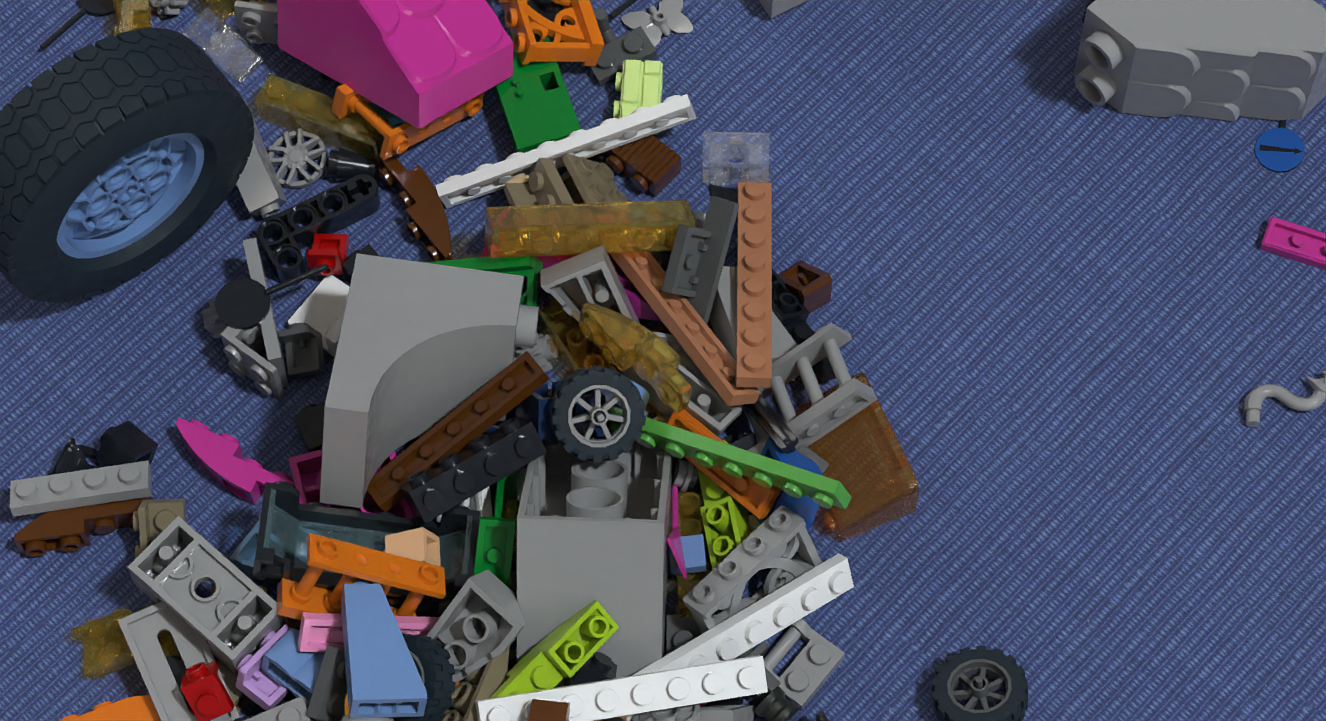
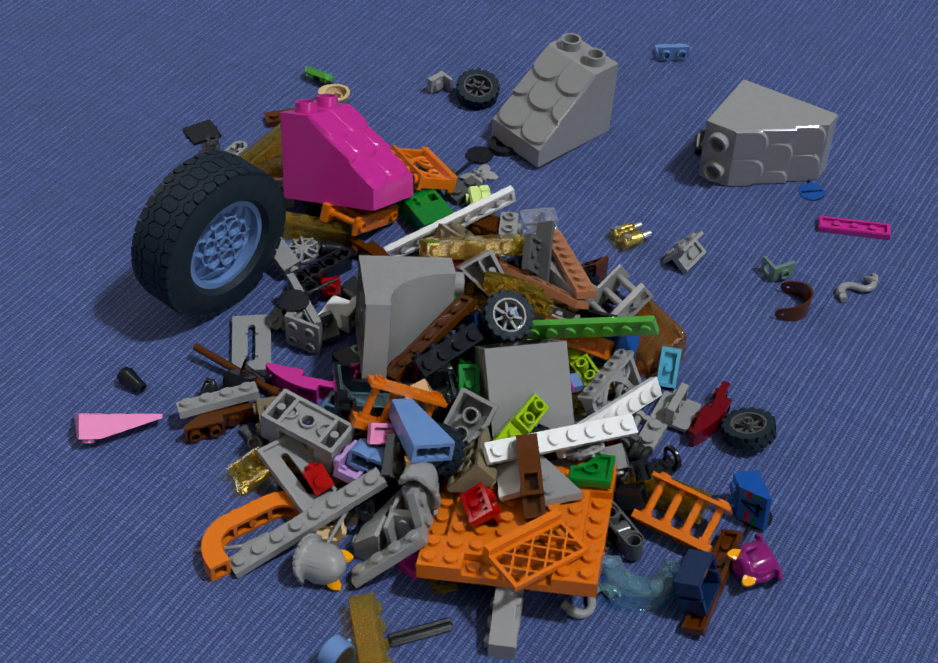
camera: 15 degrees left, 20 degrees down
(122, 548) = (252, 441): none -> dark grey piece
(160, 431) = (246, 367): none -> black piece
(184, 471) = (271, 390): none -> reddish brown bar
(186, 371) = (240, 328): none -> light grey piece
(675, 169) = (509, 223): none -> light grey bracket
(867, 626) = (676, 409): none -> light grey bracket
(875, 538) = (669, 366): none -> medium azure plate
(893, 214) = (628, 235): none -> clear yellow piece
(918, 659) = (710, 416): none -> dark red slope
(987, 272) = (686, 252): none -> light grey bracket
(1153, 345) = (777, 272): none -> sand green bracket
(1159, 444) = (801, 290): none -> reddish brown piece

